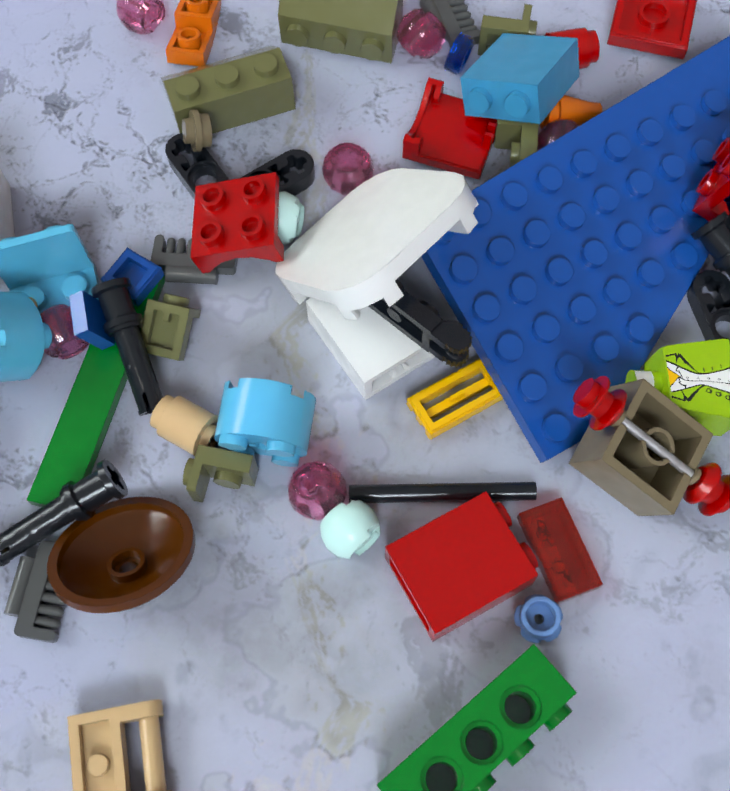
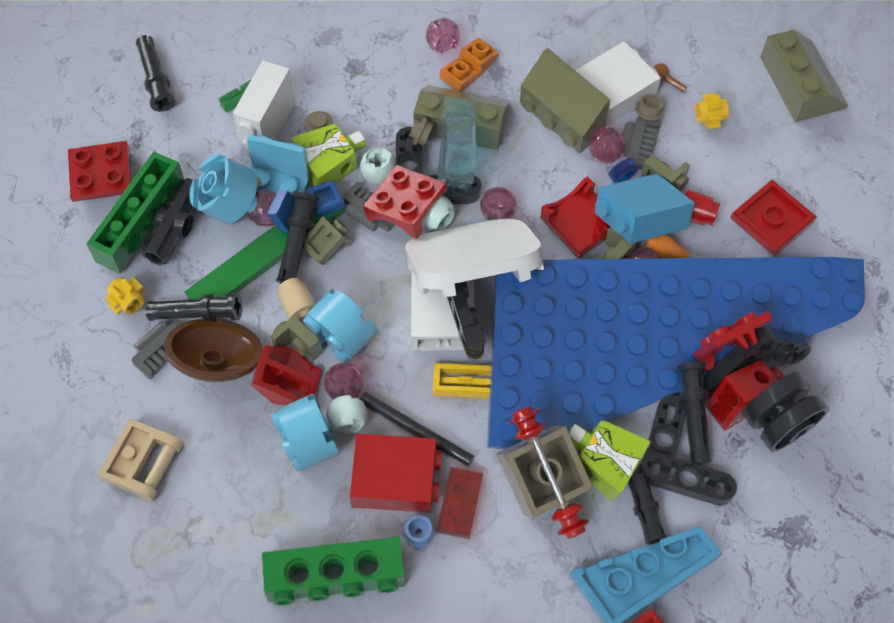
camera: 30 degrees right, 5 degrees down
(59, 193) = (317, 120): none -> dark tan plate
(102, 216) = (330, 153): none -> lime torso
(167, 189) = (375, 157): none -> light aqua piece
(239, 529) = (284, 375): none -> red slope
(258, 118) = (458, 143): none -> clear light blue slope
(321, 583) = (305, 433): none -> medium azure brick

